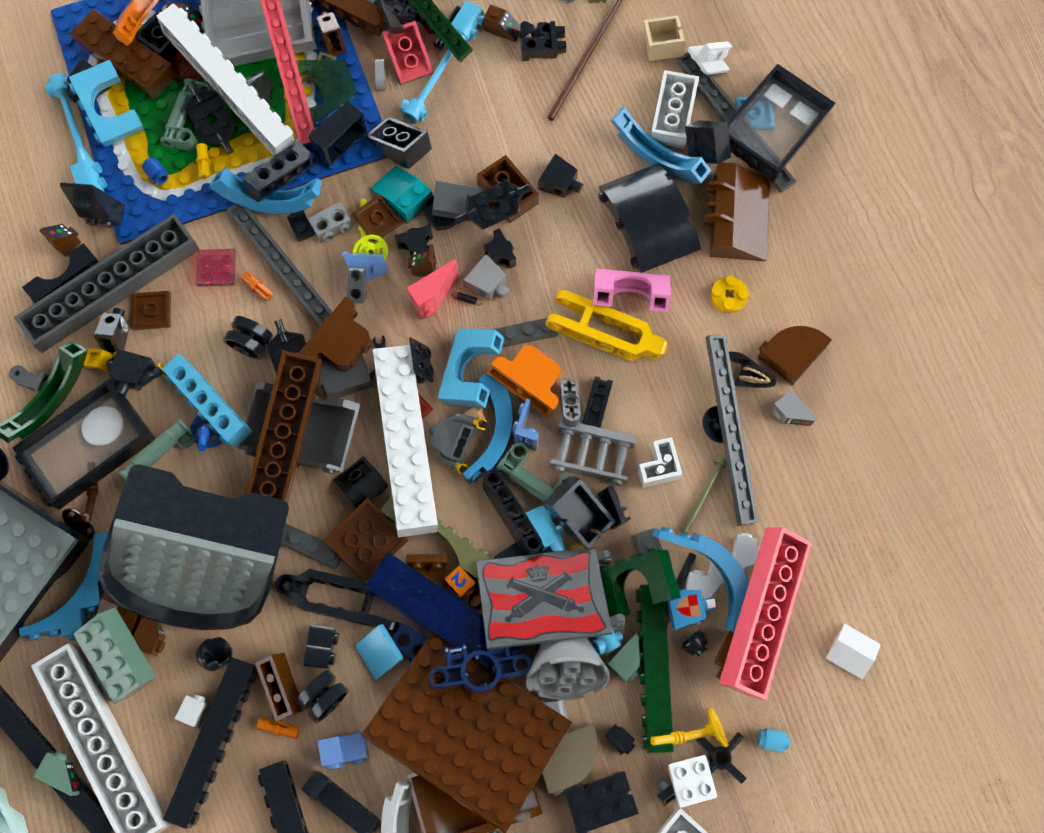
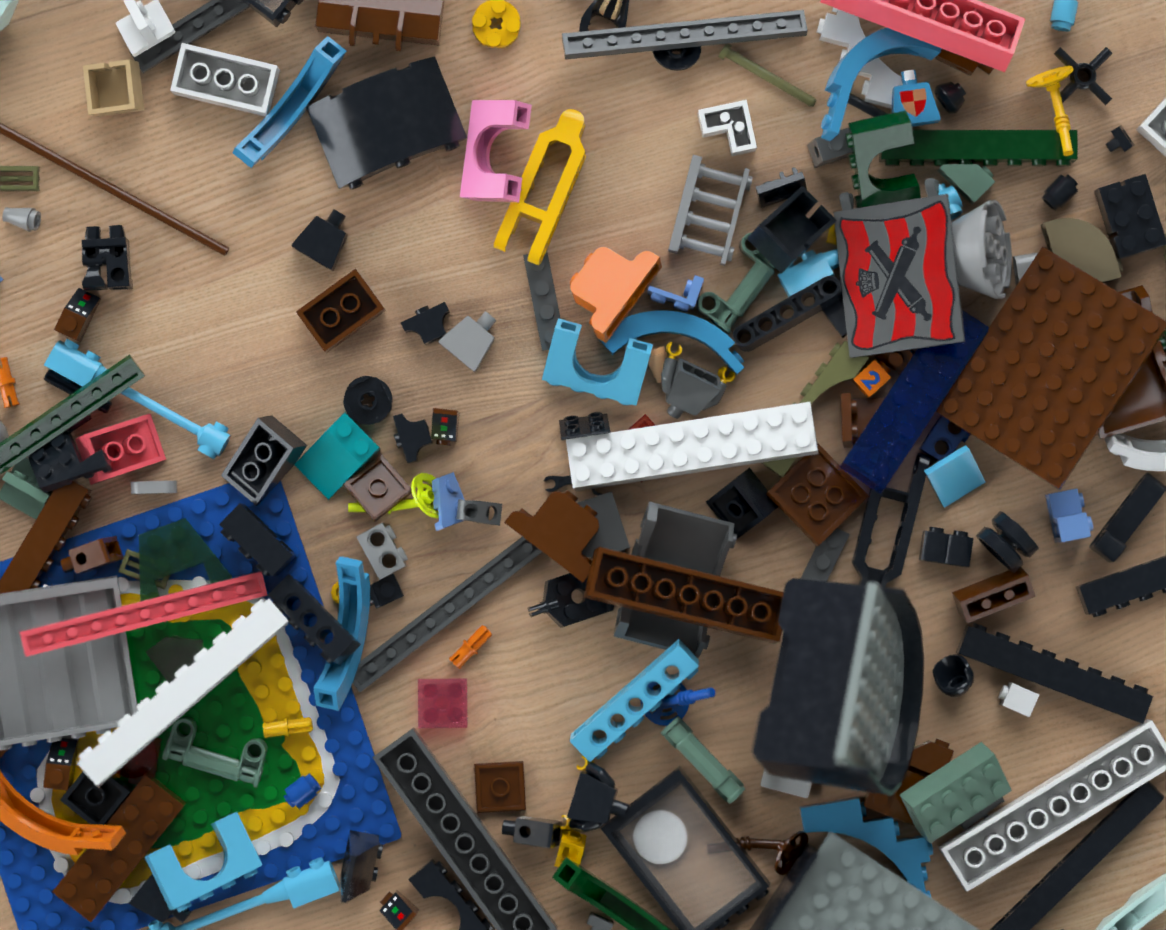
camera: 85 degrees left, 15 degrees up
(58, 773) = (1091, 846): sand green slope -> none
(208, 103) = (245, 712): black plate -> none
(247, 337) = (550, 652): black wheel -> none
(278, 727) = (1041, 592): orange pin -> none
(431, 290) = (493, 415): coral slope -> none
(451, 198) = (359, 377): dark grey piece -> none
(456, 659) = (992, 378): dark blue piece -> none
(467, 298) = (493, 368): black piece -> none
(478, 205) = (388, 343): black plate -> none
(565, 408) = (654, 242): dark grey beam -> none
(597, 402) = (643, 202): black plate -> none
(692, 781) = (1109, 110): white bracket -> none
(708, 141) = (285, 37): black brick -> none

